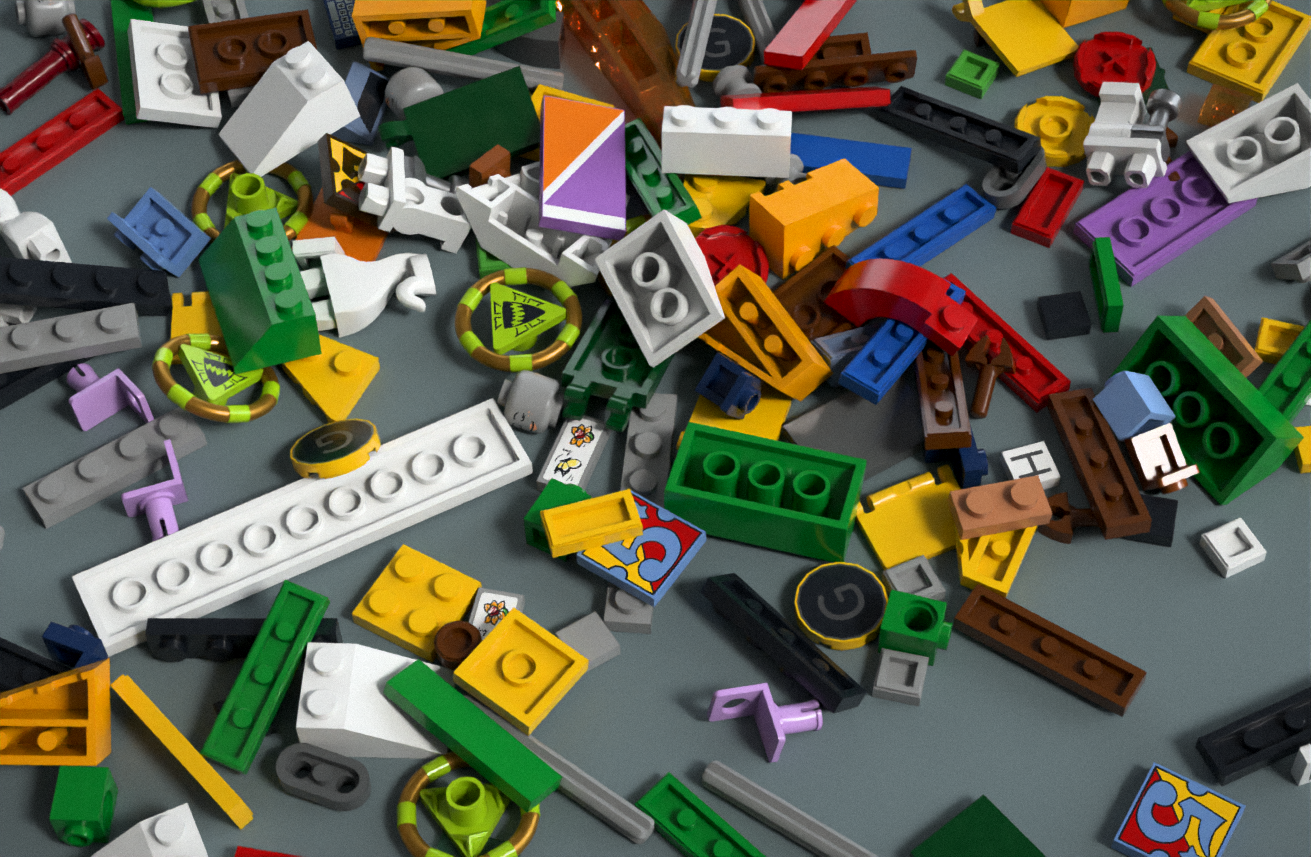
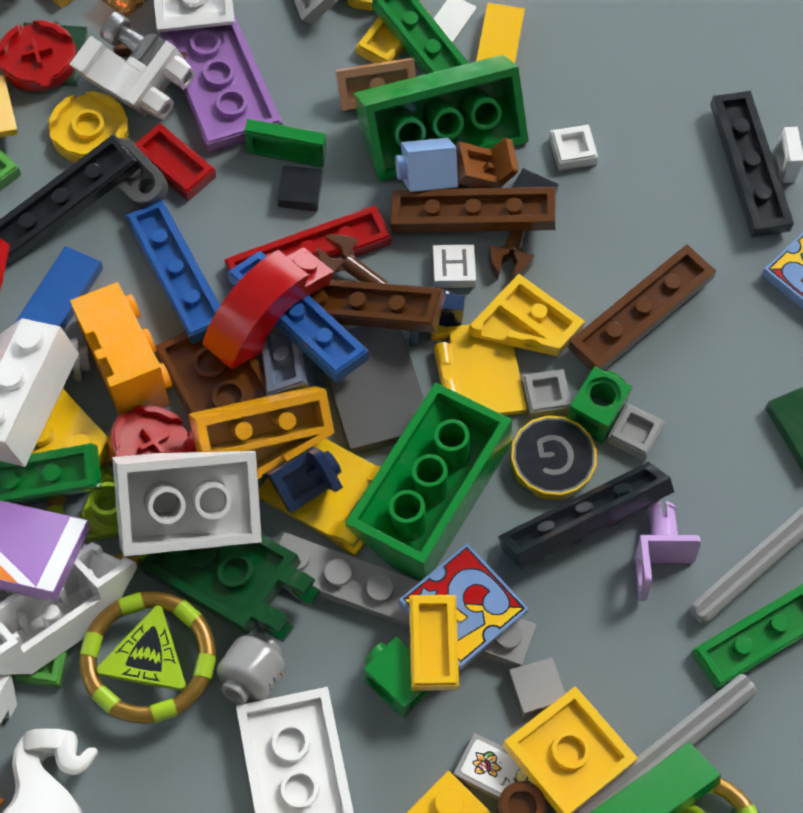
camera: 80 degrees left, 10 degrees up
(575, 452) = (323, 648): tile -> none
(999, 507) = (504, 297): nougat plate -> none

